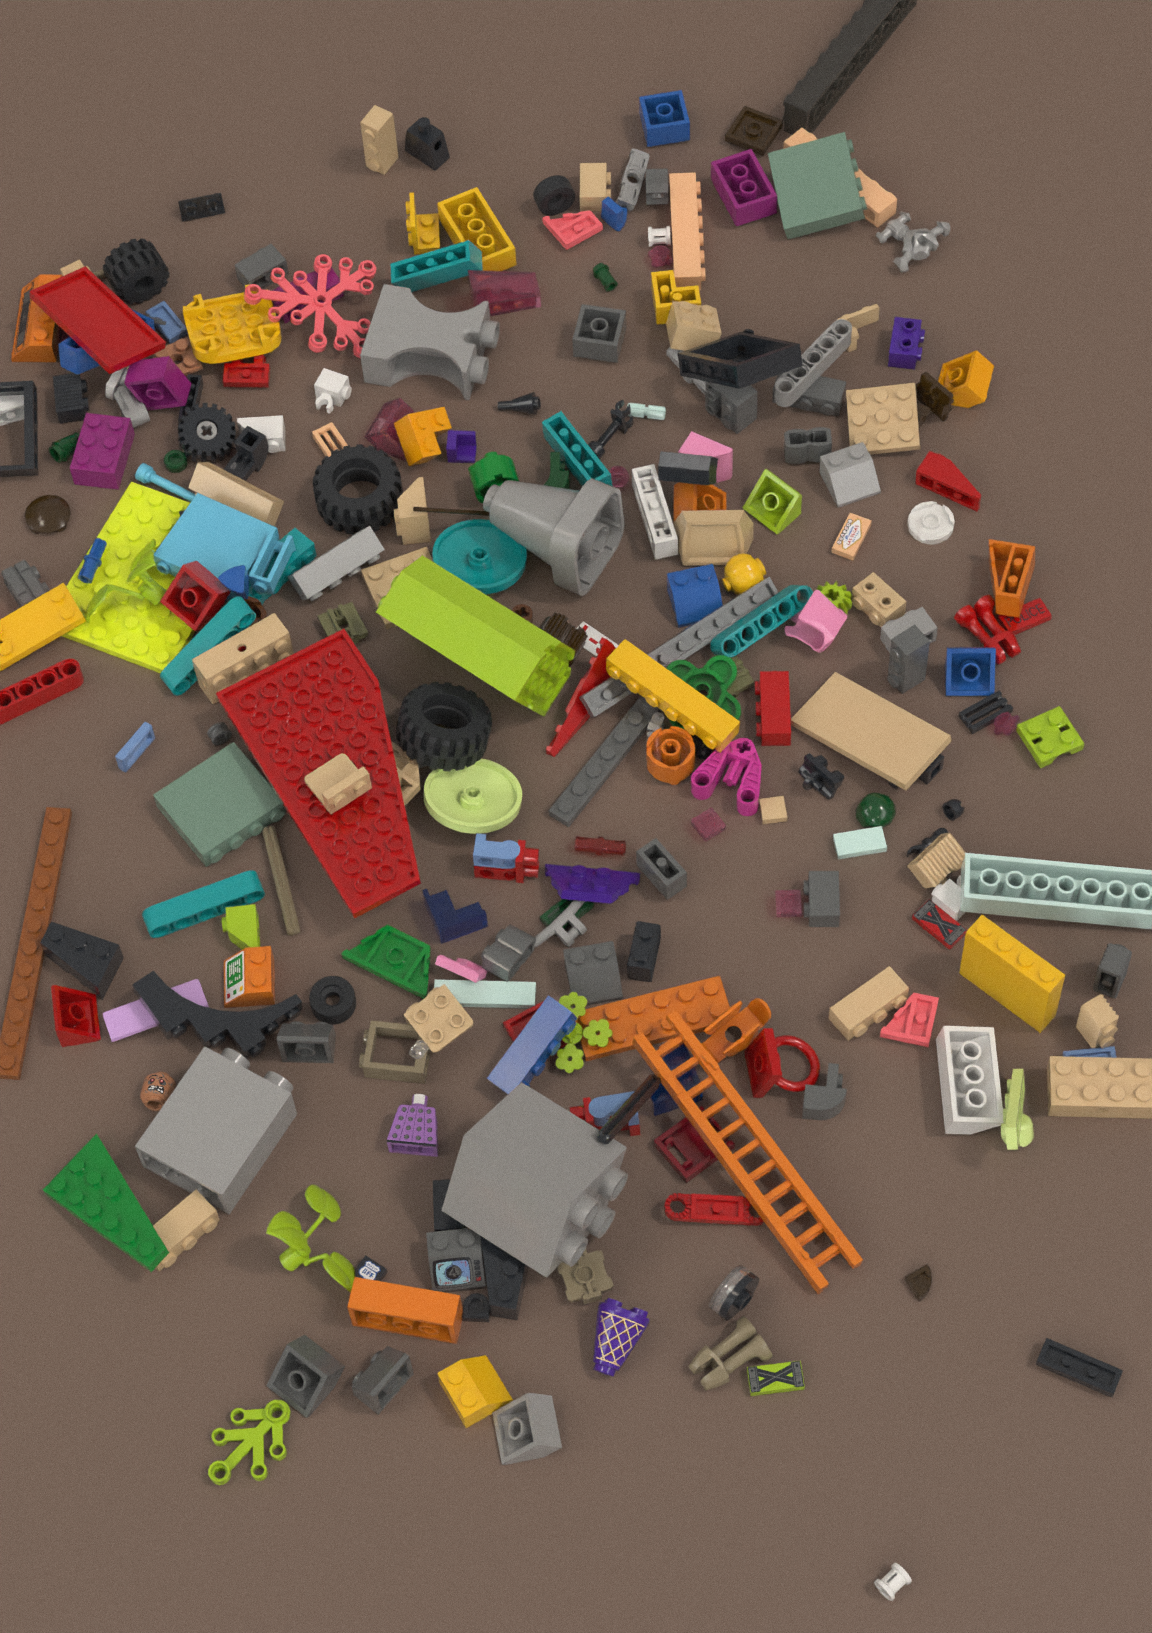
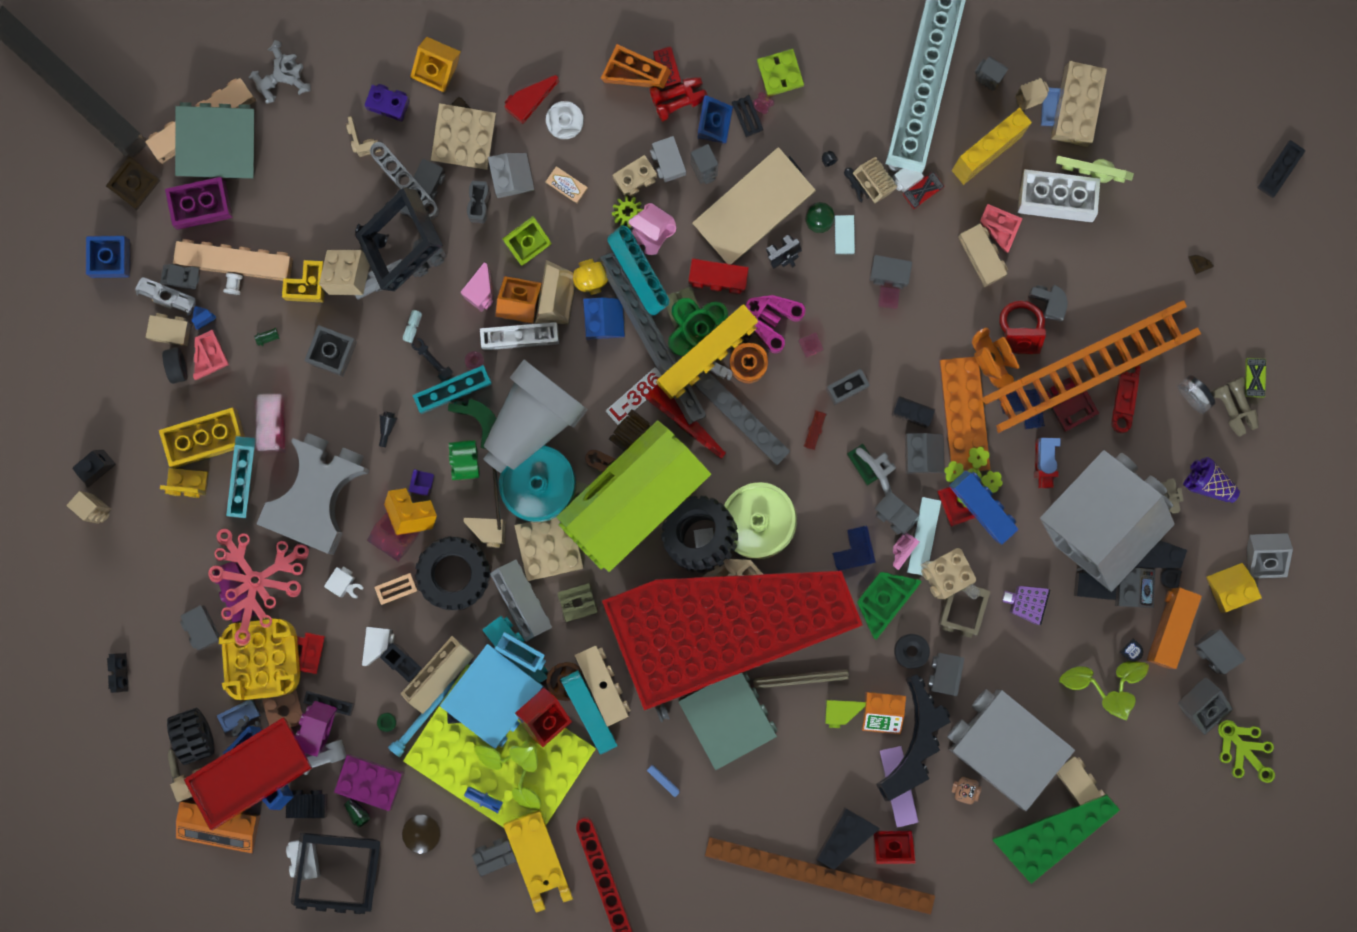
camera: 85 degrees left, 25 degrees up
(202, 904) = (813, 740): teal beam -> none
(206, 447) = (358, 691): black bush -> none
(236, 580) = (543, 683): blue tile -> none
(338, 782) = (750, 622): tan bracket -> none
(504, 860) = (821, 504): hips -> none
(589, 883) = (849, 443): dark purple wing -> none
(628, 1109) = (1064, 443): black axle -> none
(656, 253) = (258, 287): clear pink plate -> none
(687, 468) = (497, 301): black piece -> none
(773, 810) = (805, 293): tan tile -> none
(934, 396) = (449, 90): dark brown piece -> none

